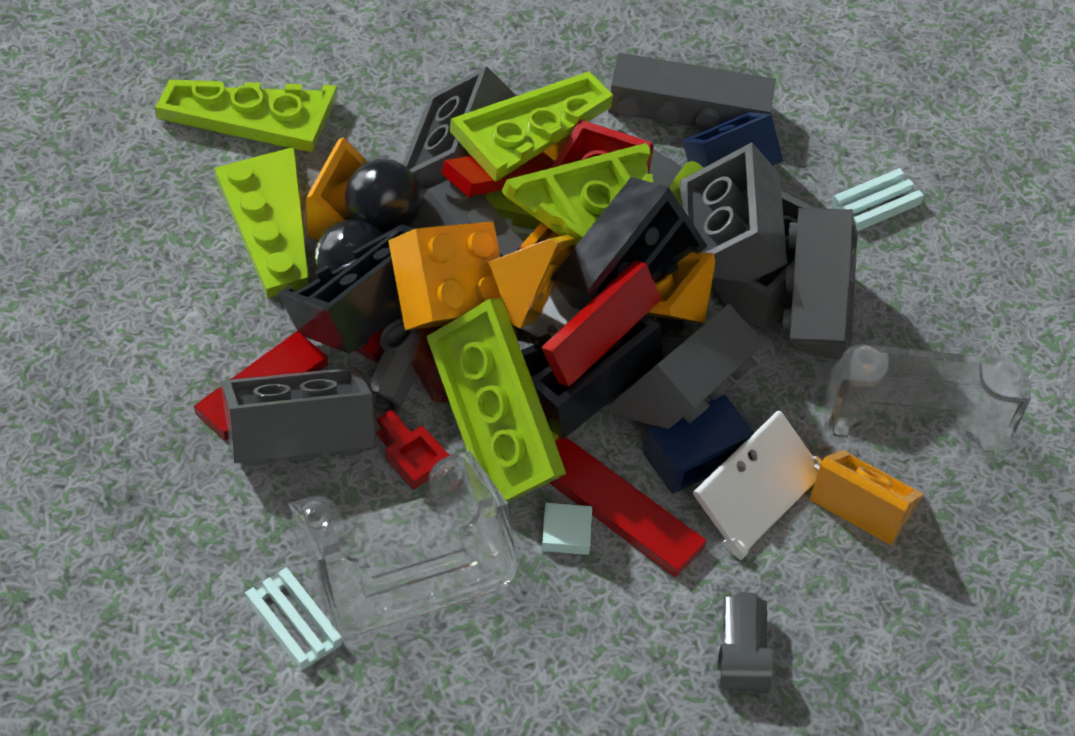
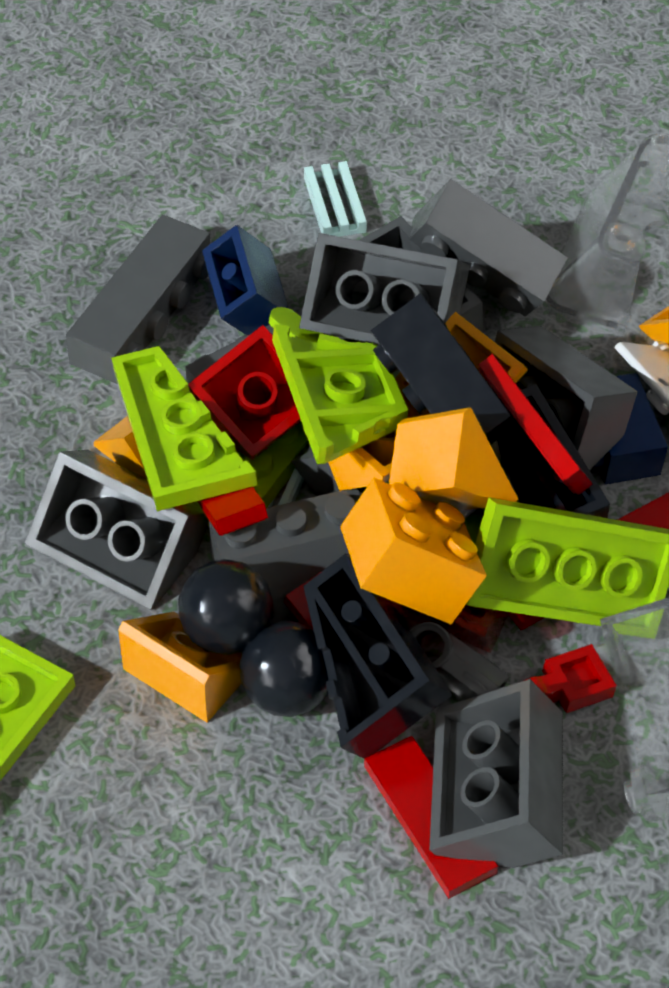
camera: 70 degrees left, 0 degrees up
(267, 213) = (158, 755): lime wing -> none

